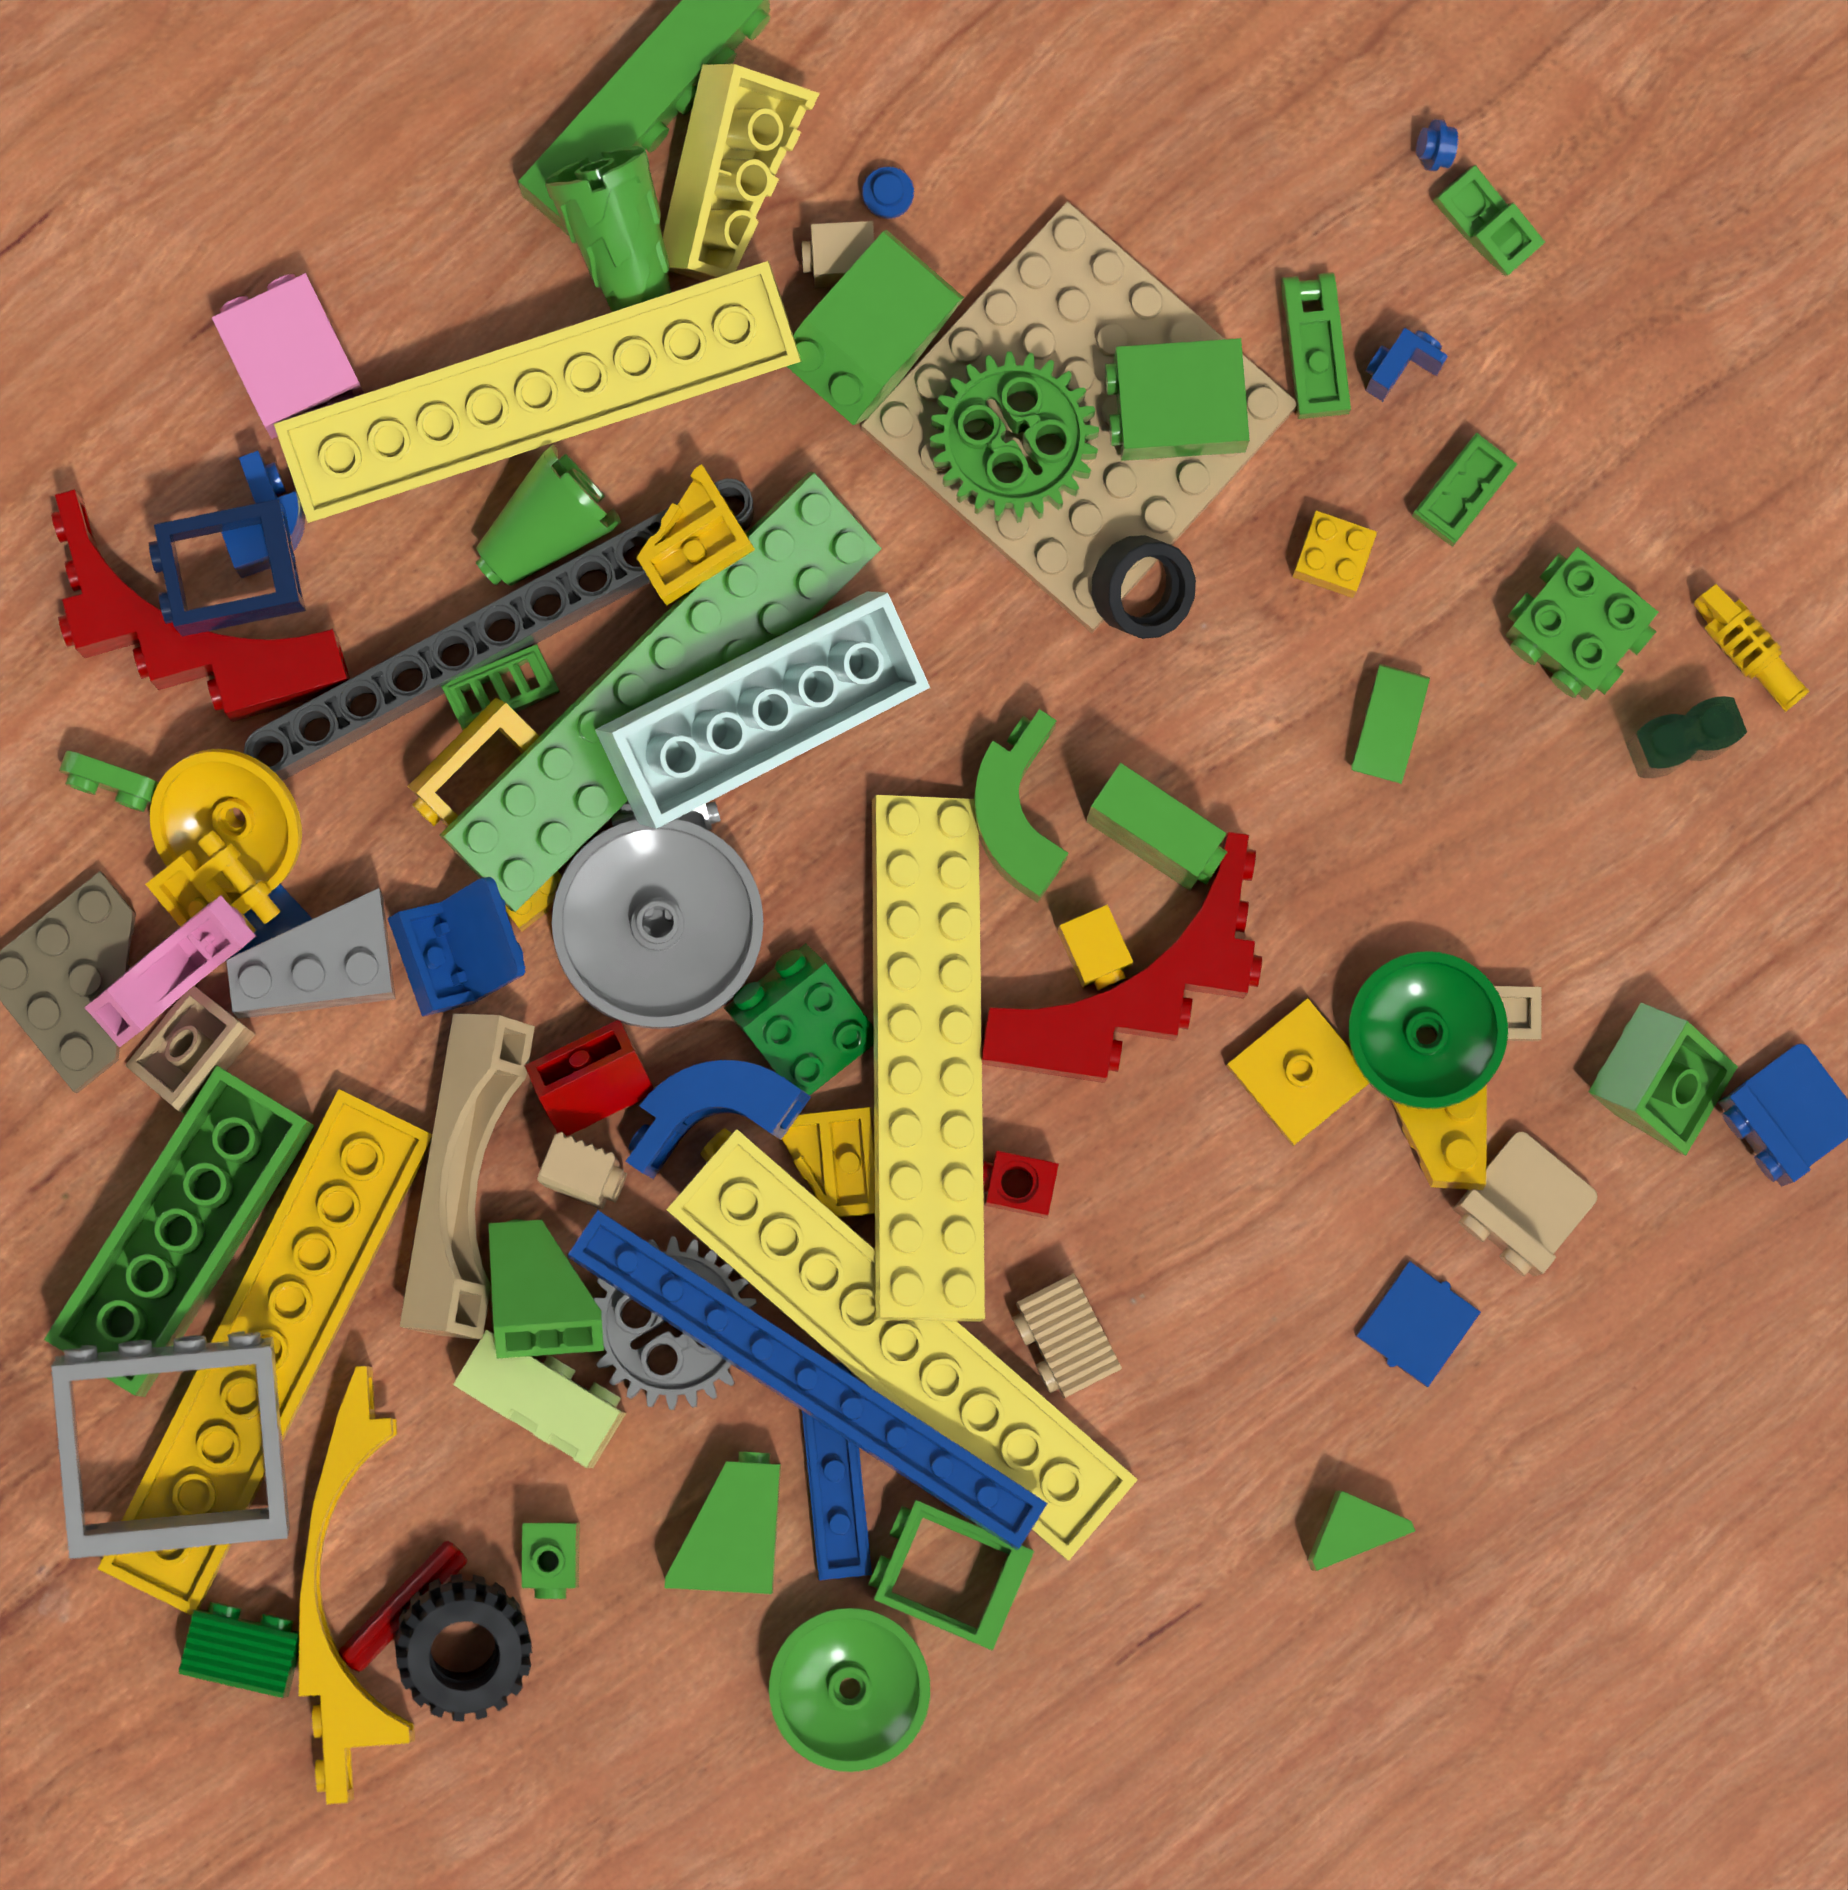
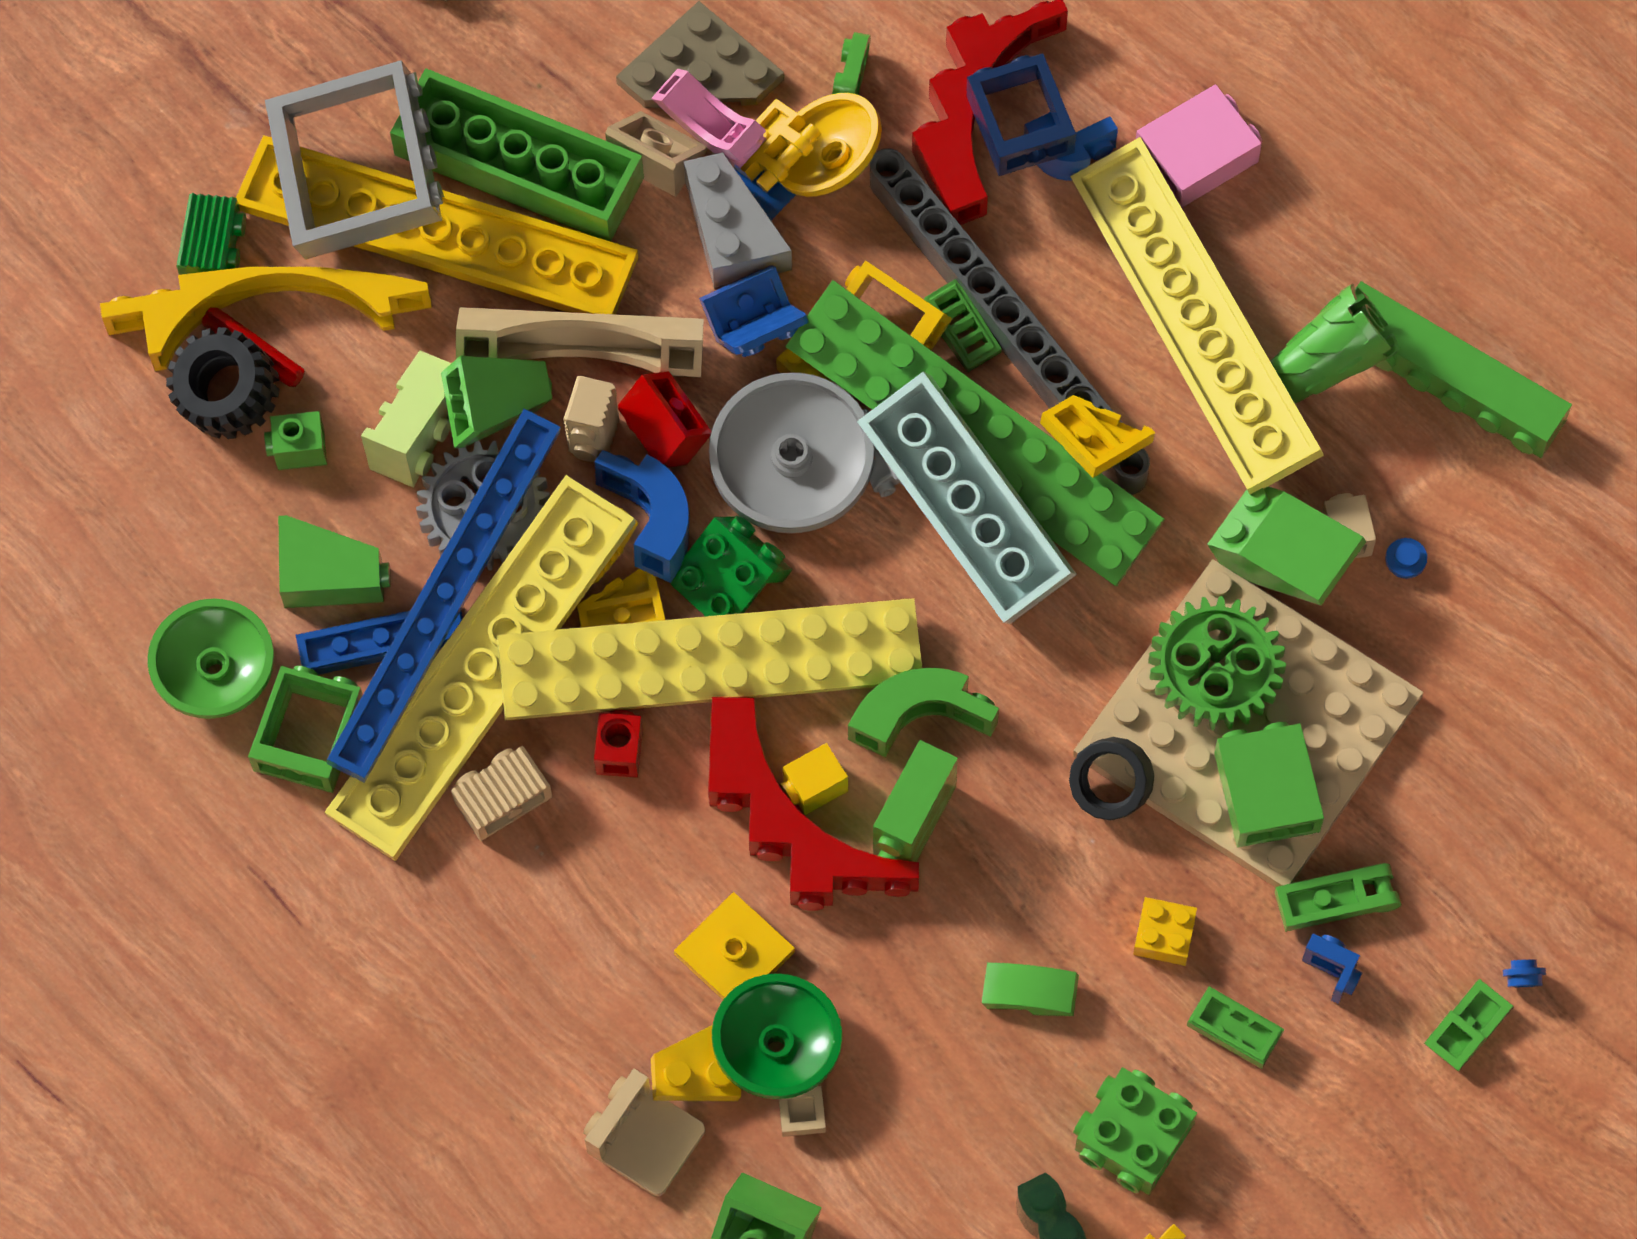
camera: 90 degrees right, 15 degrees down
(544, 520) = (1100, 338): bright green cone -> none
(729, 166) = (1402, 431): light yellow wedge -> none
(1354, 1528) = (369, 1026): bright green slope -> none
(1418, 1324) = (539, 1067): blue piece -> none

